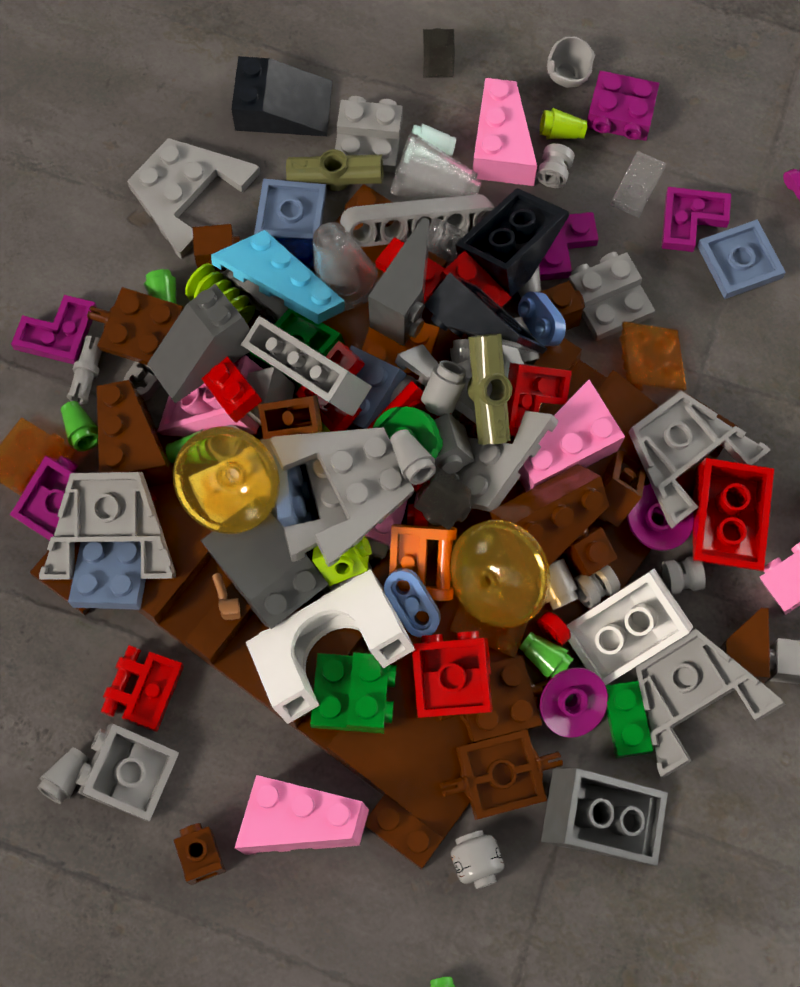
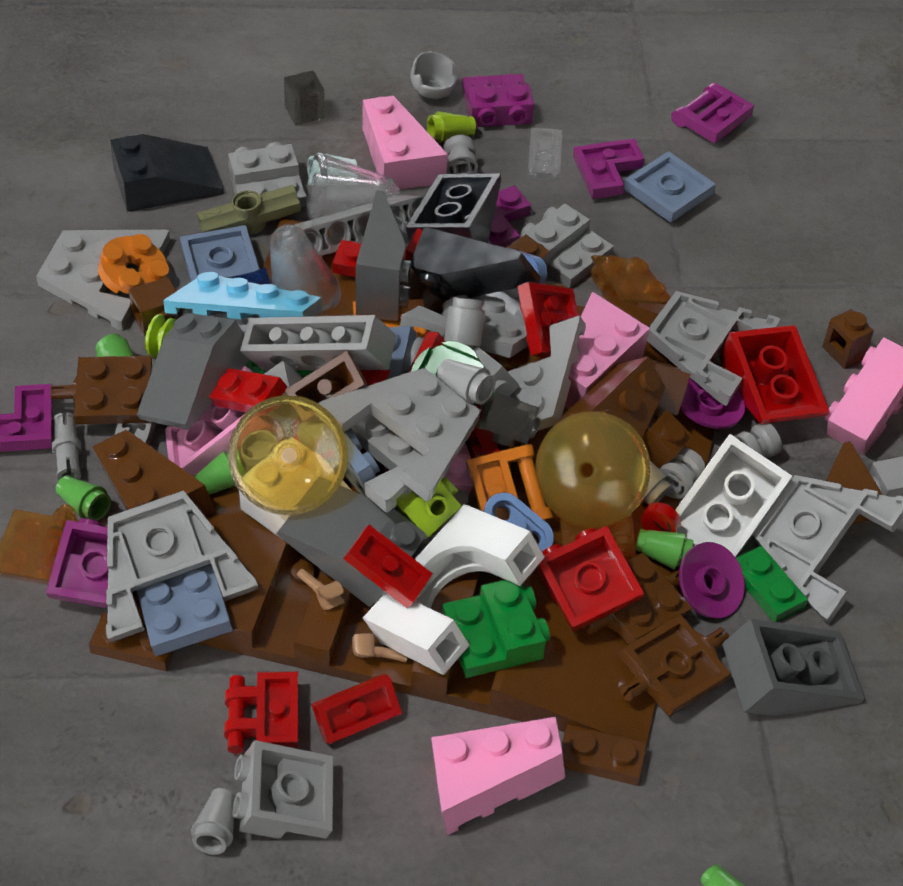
camera: 25 degrees left, 20 degrees down
(204, 866) = (405, 855): reddish brown brick -> none
(216, 714) = (356, 708): none -> red plate
(220, 183) = (134, 250): none -> orange plate
(243, 662) = (364, 647): none -> medium nougat hand
(272, 614) = (388, 566): none -> red plate
(477, 859) = (690, 749): light grey head -> none
(491, 410) = (510, 309): olive piece -> none

